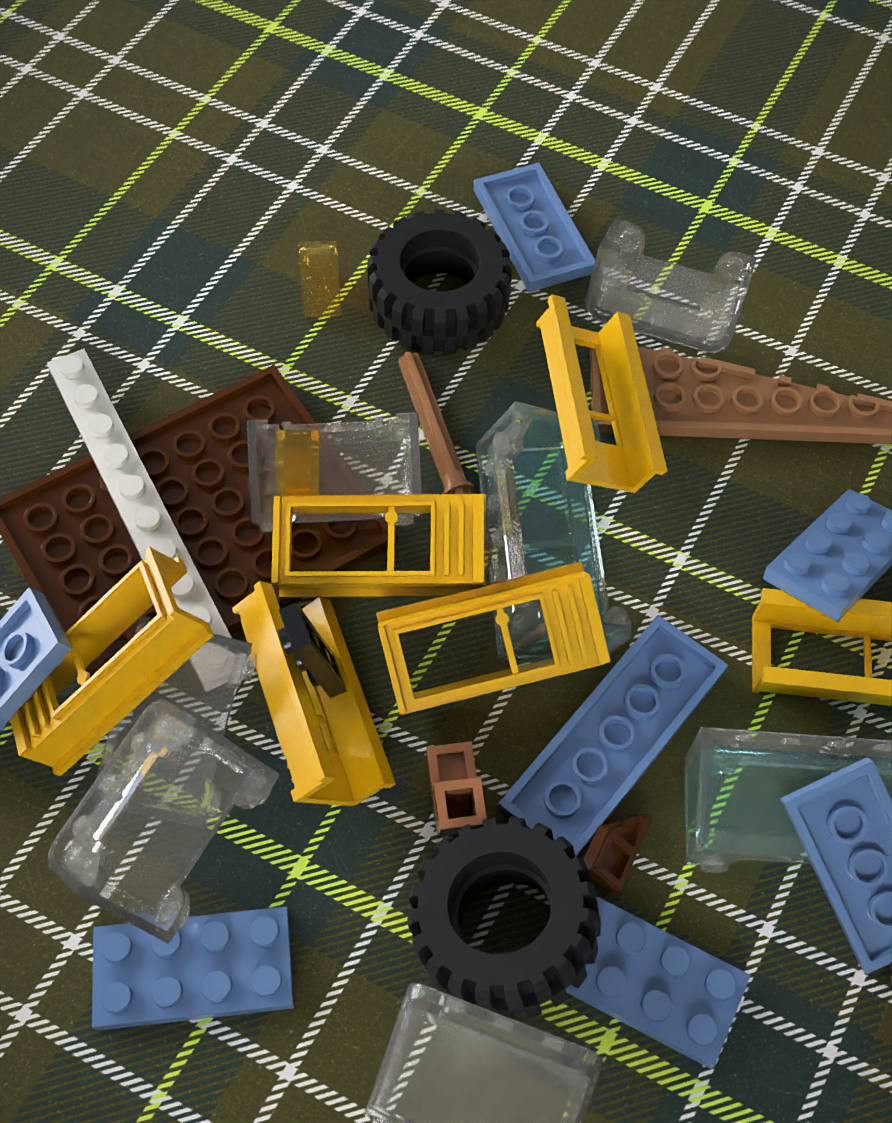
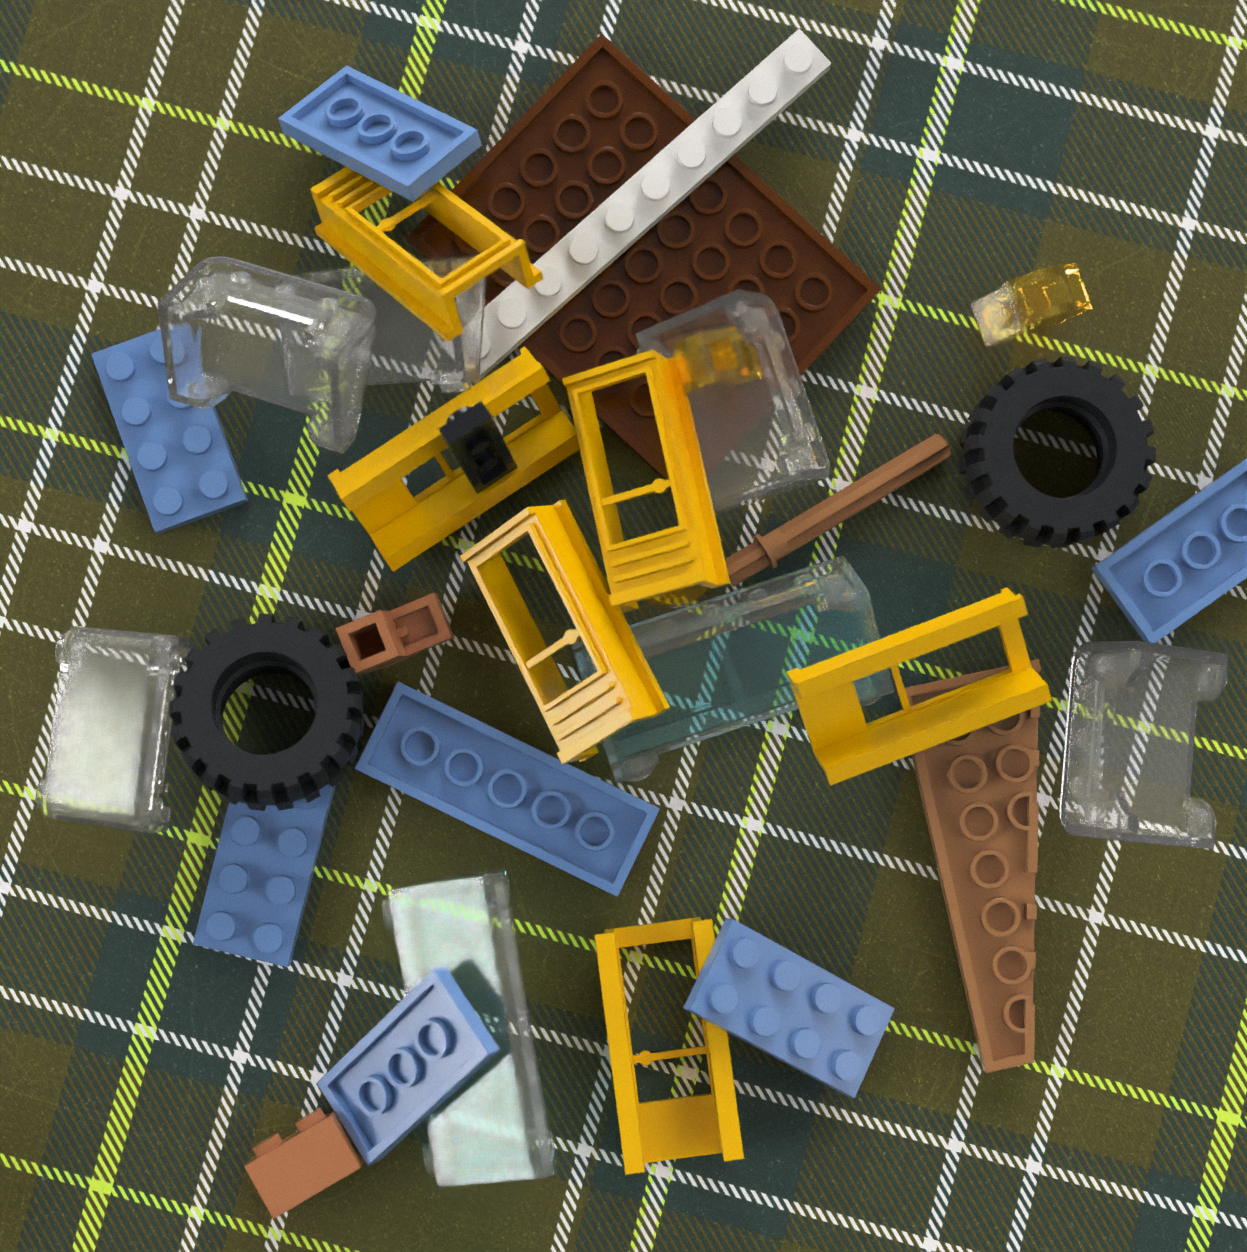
camera: 75 degrees right, 25 degrees up
(615, 850) = (382, 811): reddish brown tile -> none

